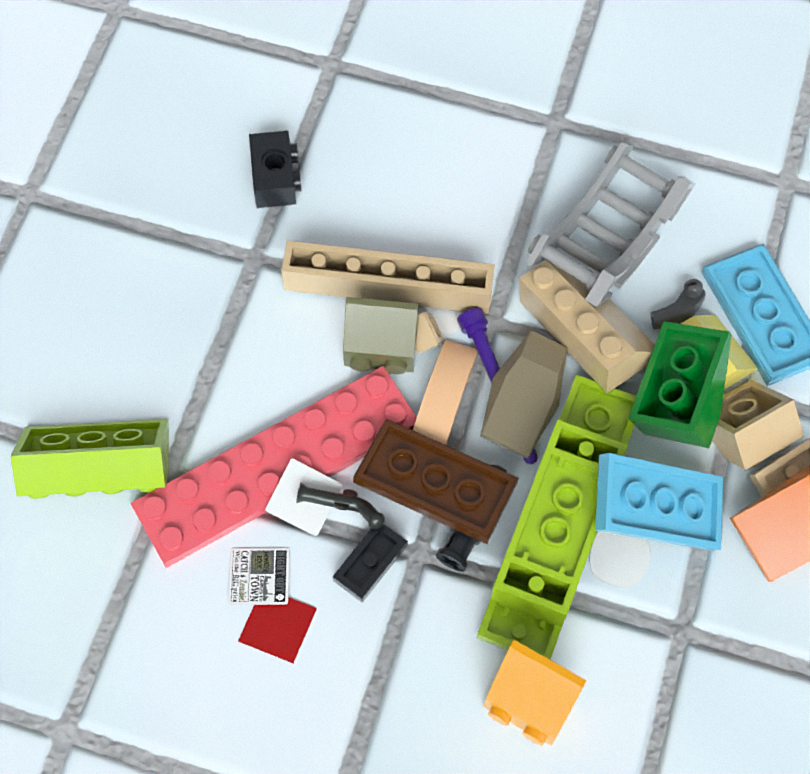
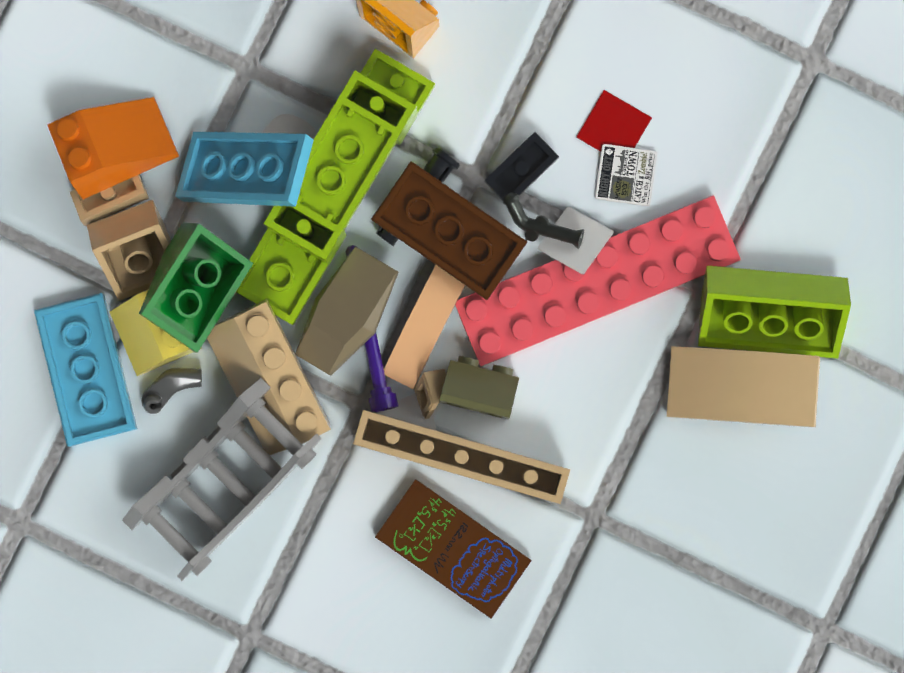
camera: 165 degrees left, 20 degrees up
(118, 381) = (743, 386): none -> tan slope
(274, 186) = (571, 631): black brick -> none
(383, 209) = (453, 548): none -> reddish brown tile

